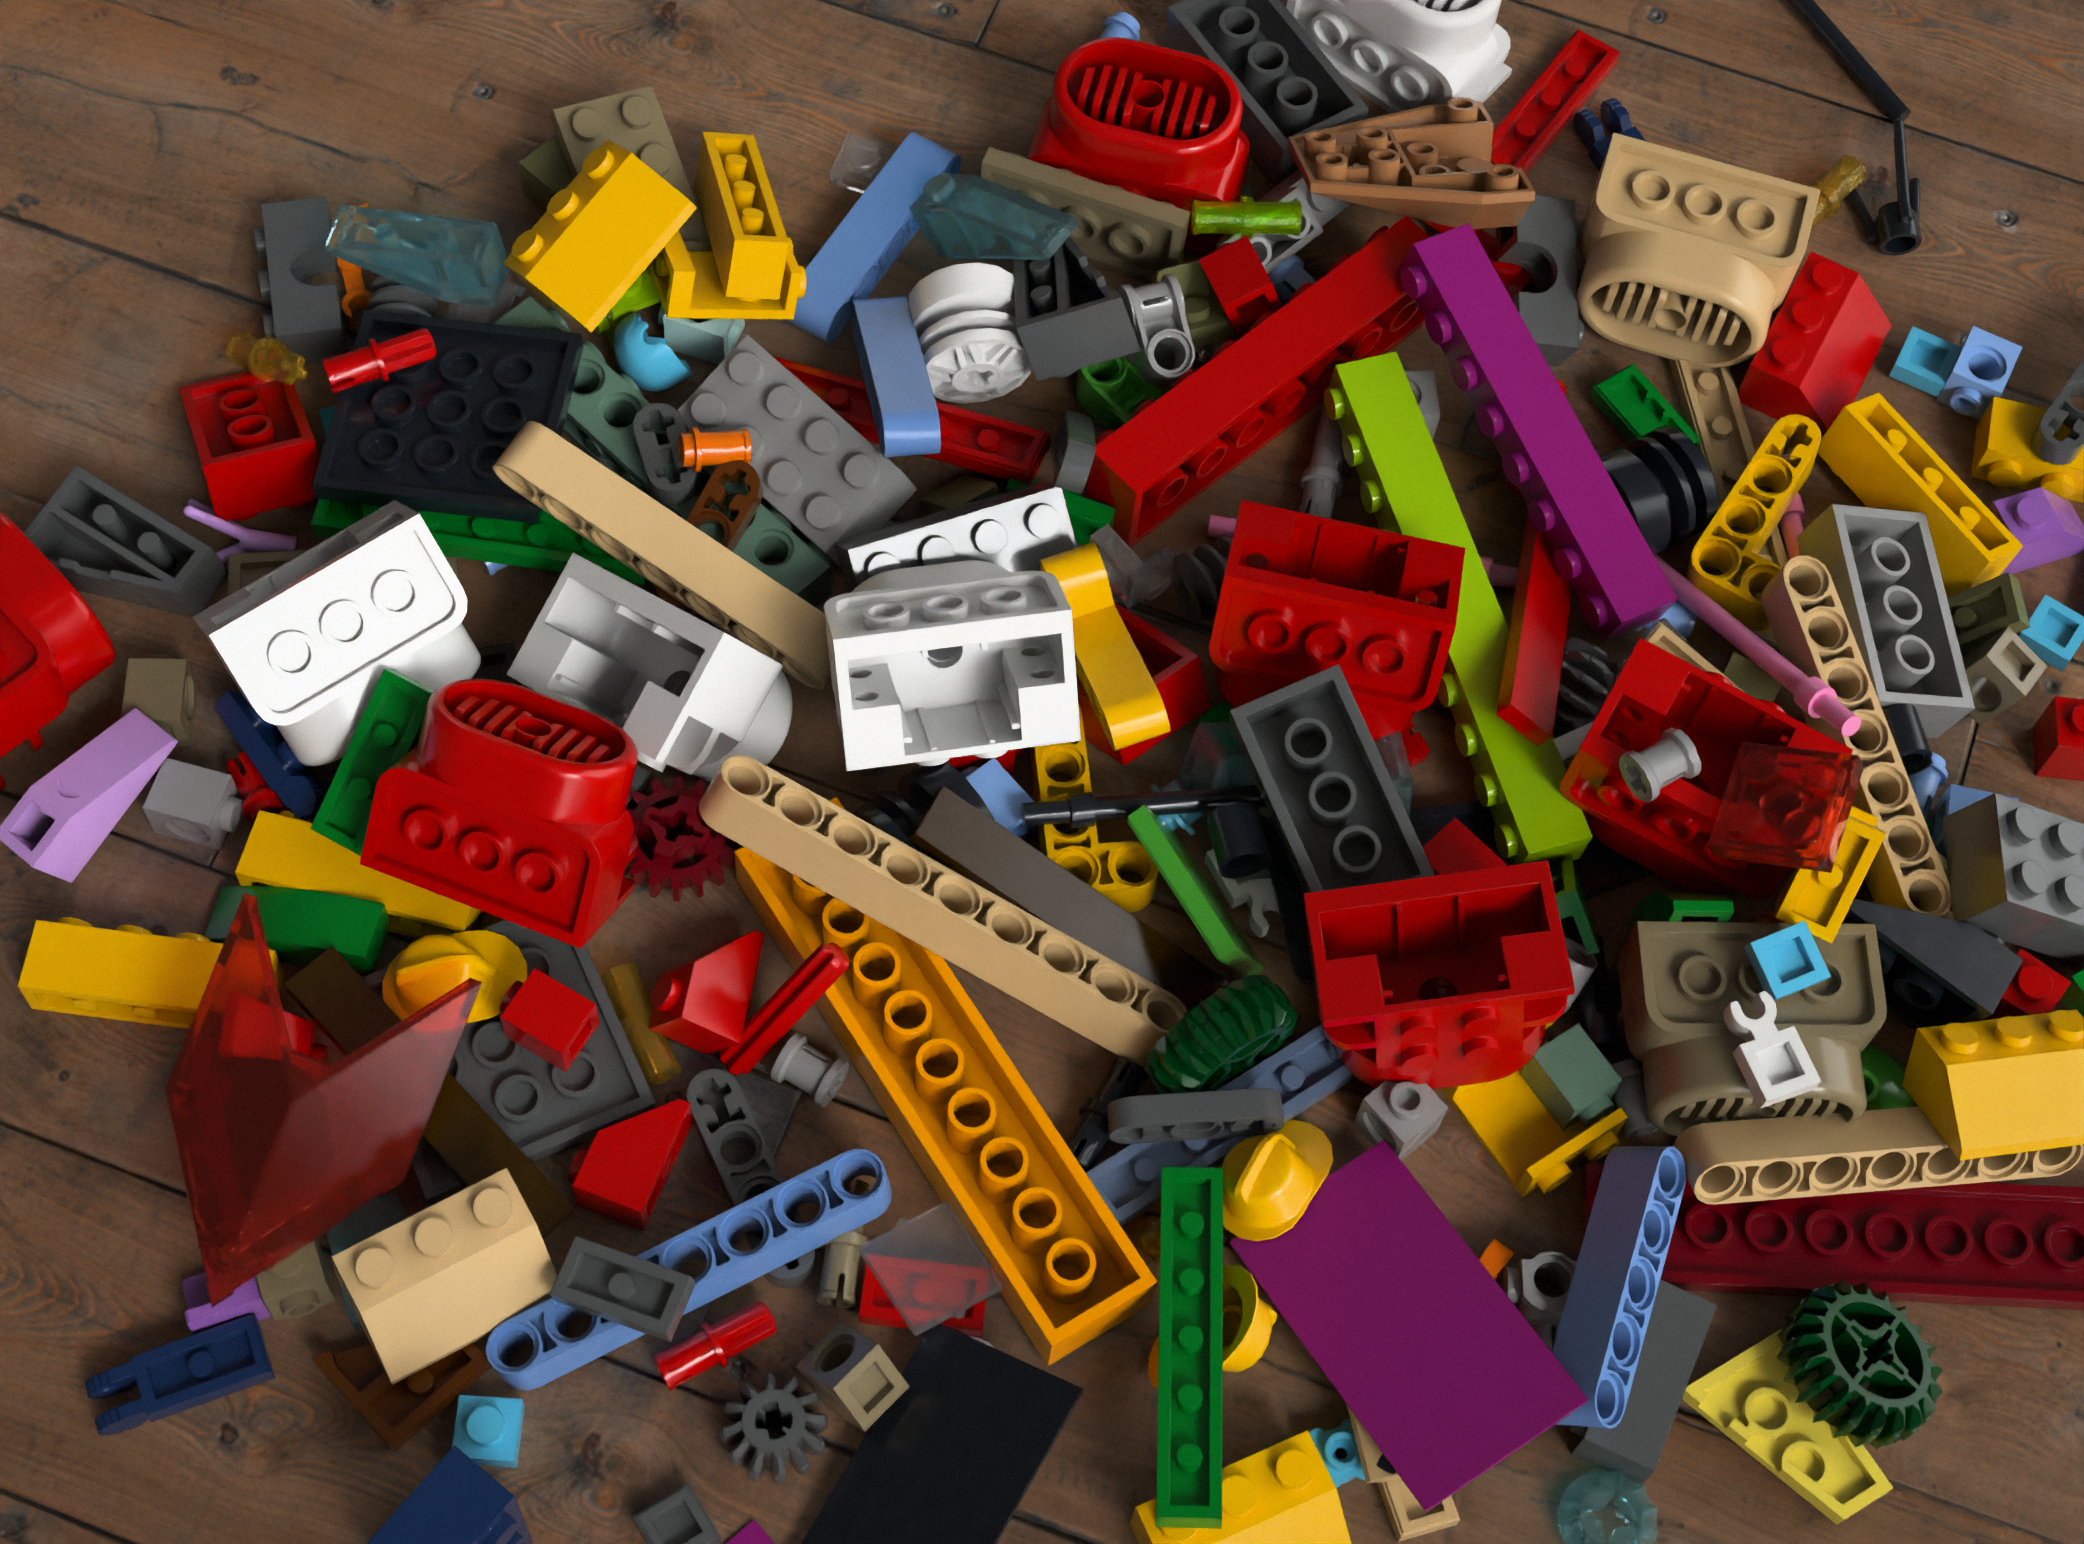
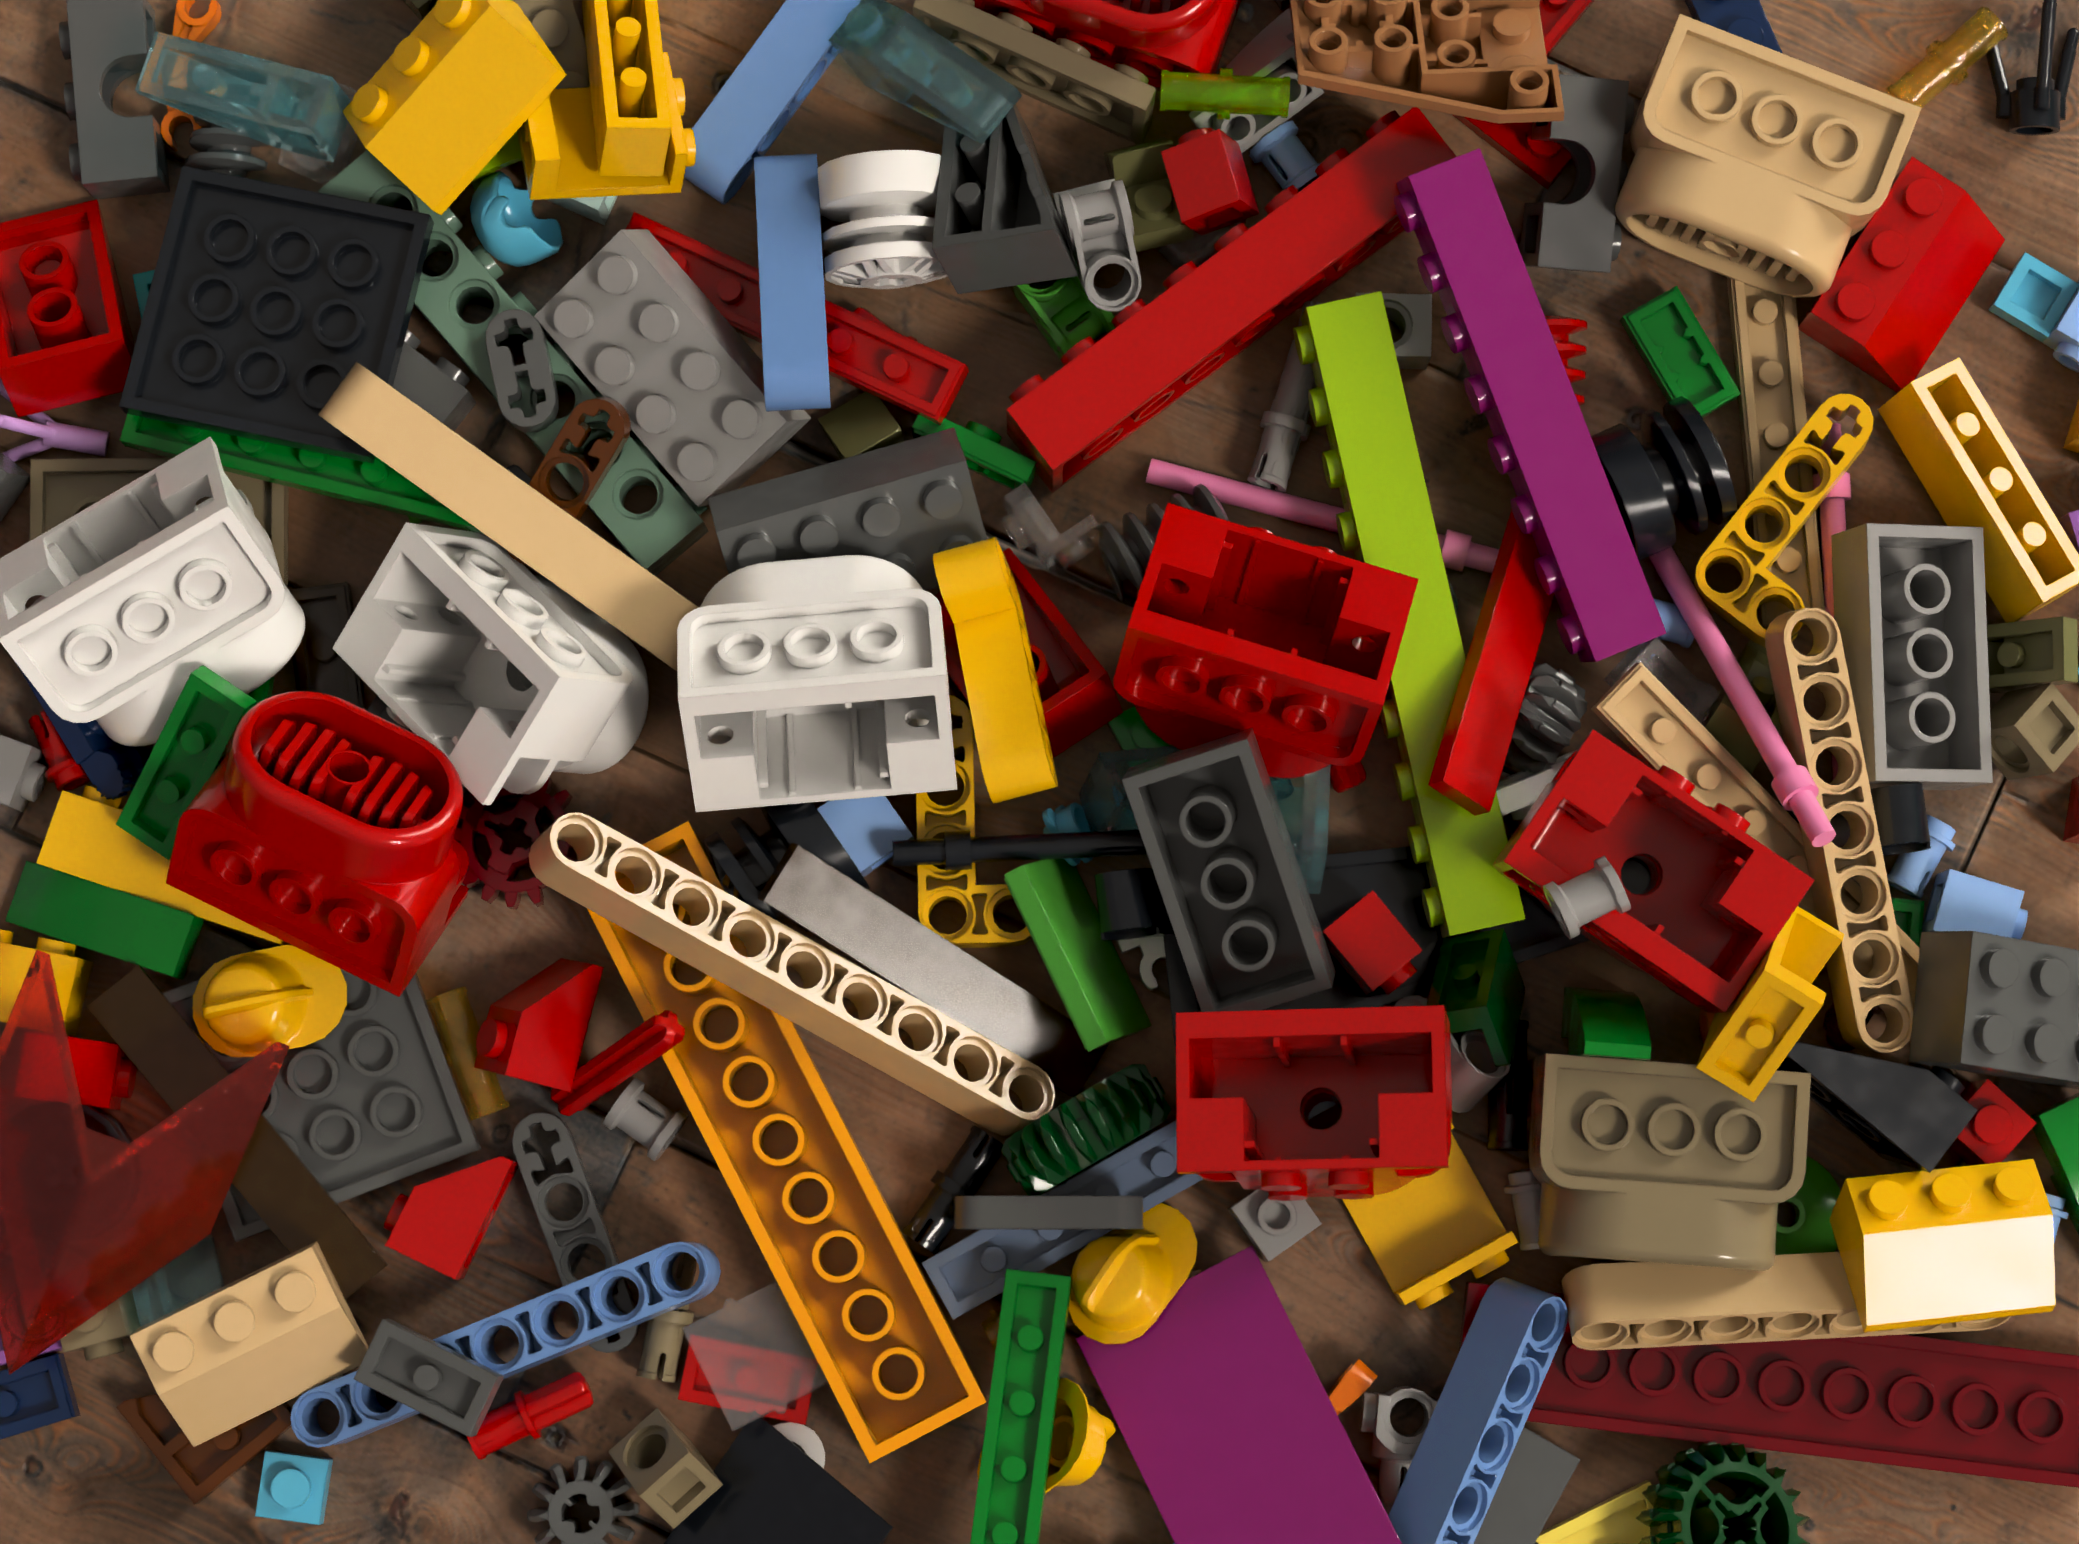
camera: 10 degrees right, 20 degrees up
(266, 358) = (73, 207): clear yellow axle -> none
(378, 359) = (195, 247): red axle -> none
(548, 1019) = (364, 1060): red brick -> none
(713, 448) = (574, 382): orange pin -> none
(1073, 452) = (988, 401): dark grey beam -> none
(1572, 1079) = (1470, 1191): sand green brick -> none
(1771, 1059) = (1666, 1235): white plate -> none
(1786, 806) = (1718, 961): clear red plate -> none
(1787, 961) = (1699, 1123): medium azure plate -> none

